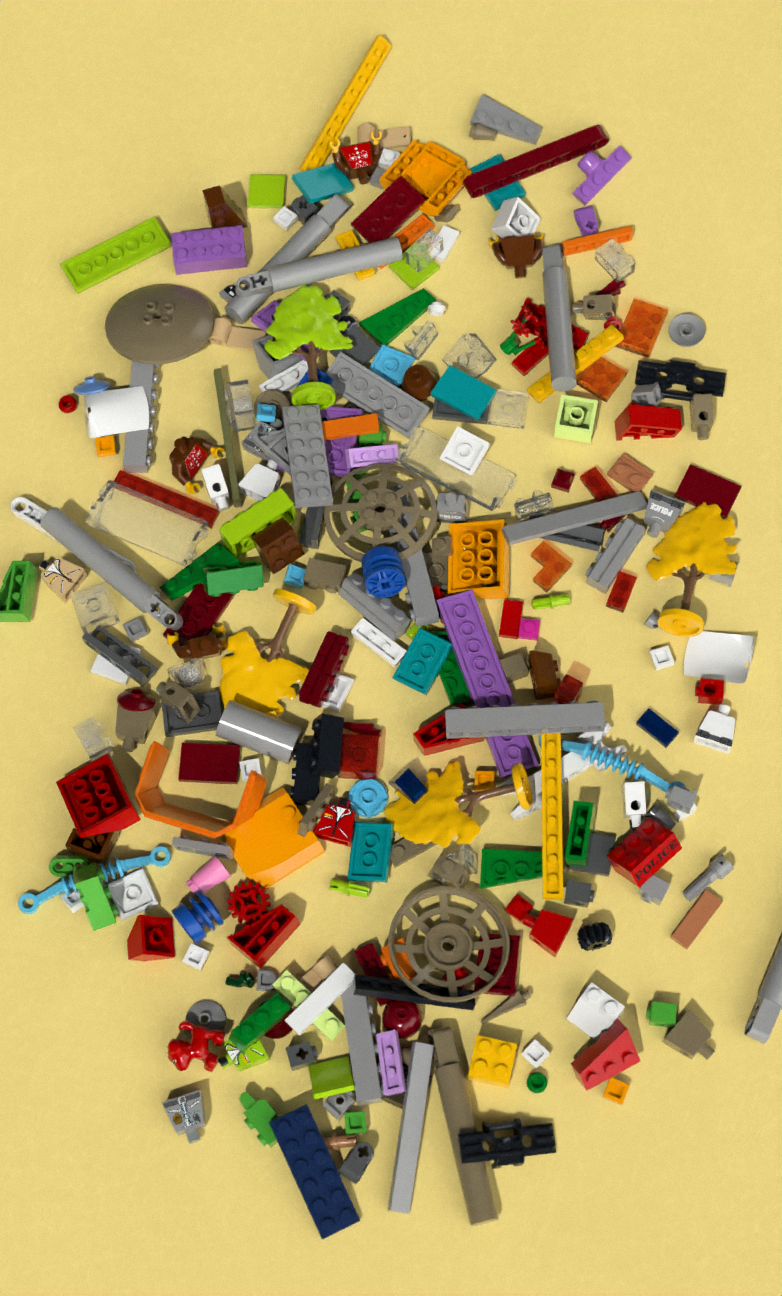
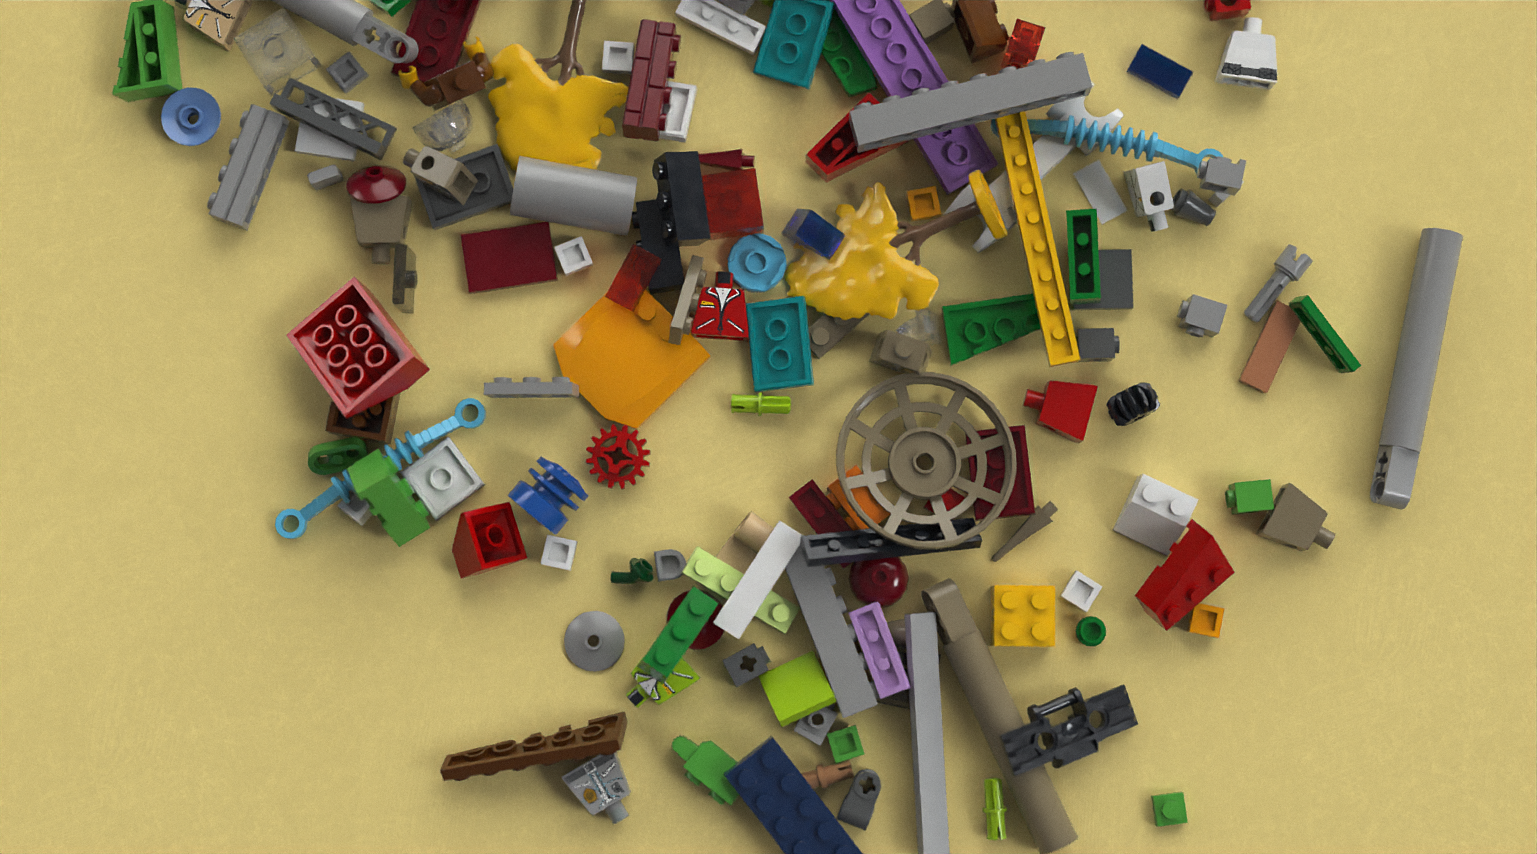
camera: 20 degrees left, 15 degrees up
(27, 630) = (181, 107): none -> medium blue dish
(59, 674) = (248, 167): none -> light grey brick
(93, 740) = (326, 258): clear brick -> none
(105, 690) = (325, 177): none -> light grey tile
(138, 759) = (404, 278): none -> clear smoke plate
(155, 808) = (496, 352): orange piece -> none
(182, 1052) = (574, 698): red animal -> none
(192, 1081) = (601, 737): none -> reddish brown wing
(208, 876) = (549, 430): bright pink plant -> none
(265, 936) = (654, 502): red wedge -> none
(284, 789) = (633, 277): none -> clear red plate
(307, 652) = (618, 57): none -> white plate
(446, 1188) = (994, 809): none -> lime axle
(518, 908) = (1012, 383): red plate -> none
(566, 1215) = (1169, 809): none -> bright green plate
(603, 797) = (1100, 191): none -> white sticker
(644, 852) = (1181, 265): red brick -> none
(732, 917) = (1324, 334): none -> green tile

